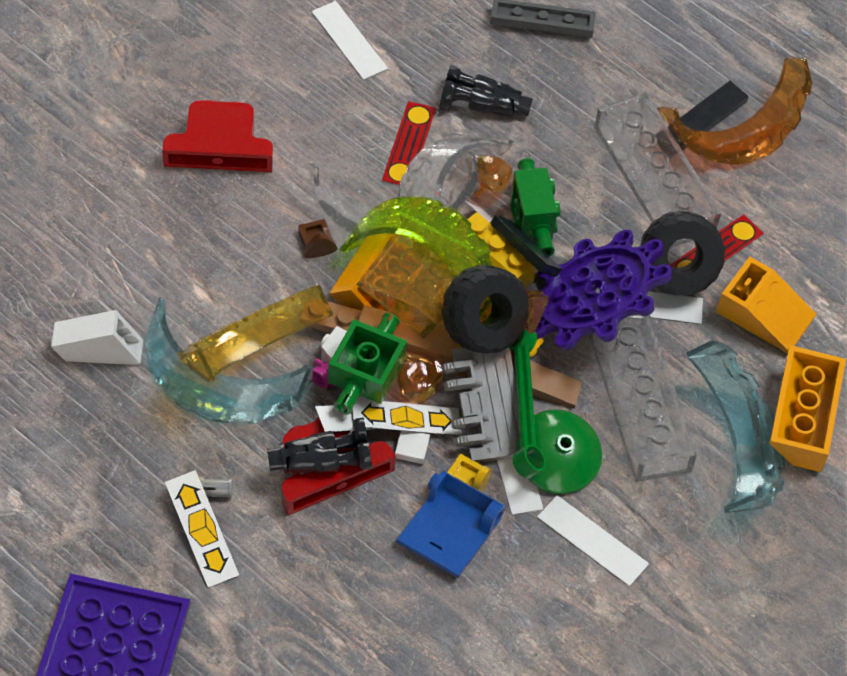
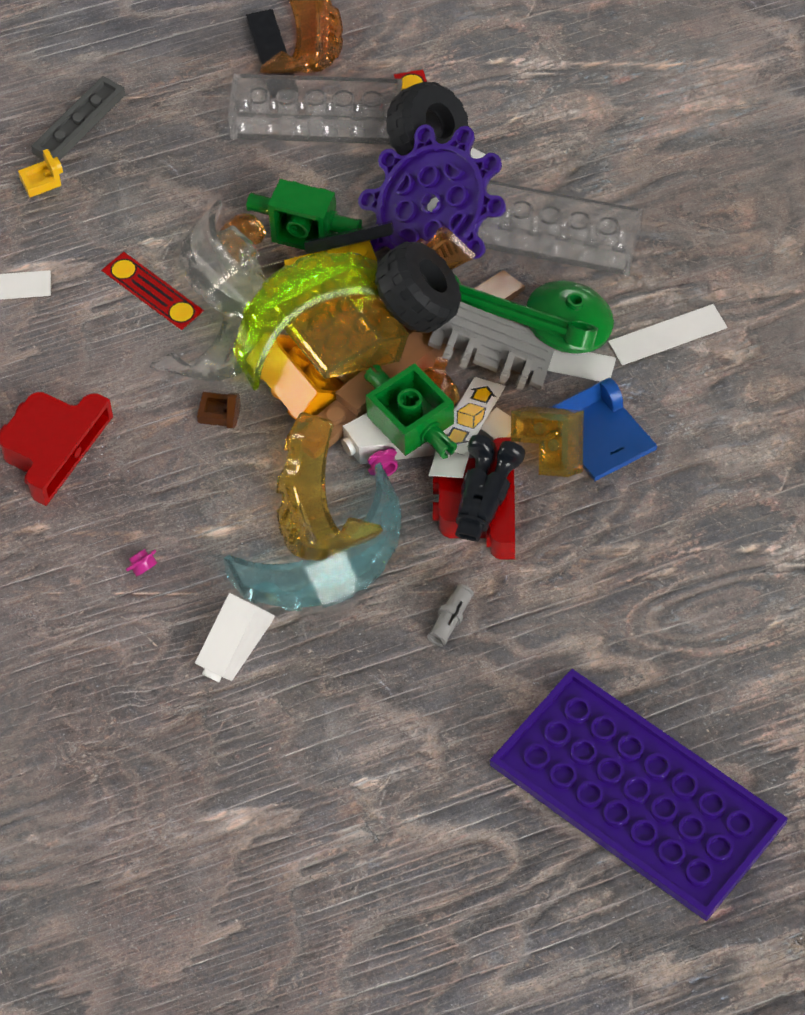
camera: 55 degrees left, 0 degrees up
(137, 249) = (142, 562): none -> dark pink plate
(201, 528) = (497, 630): sticker -> none
(411, 485) = (558, 436): none -> clear yellow brick
(470, 18) = (41, 176): none -> yellow bracket
(471, 472) = (554, 391): yellow tile -> none
(485, 96) = (140, 204): black piece -> none
(749, 425) = (630, 171): clear light blue windscreen -> none
(765, 305) = (506, 99): light orange slope -> none
(807, 407) = (635, 111): light orange slope -> none

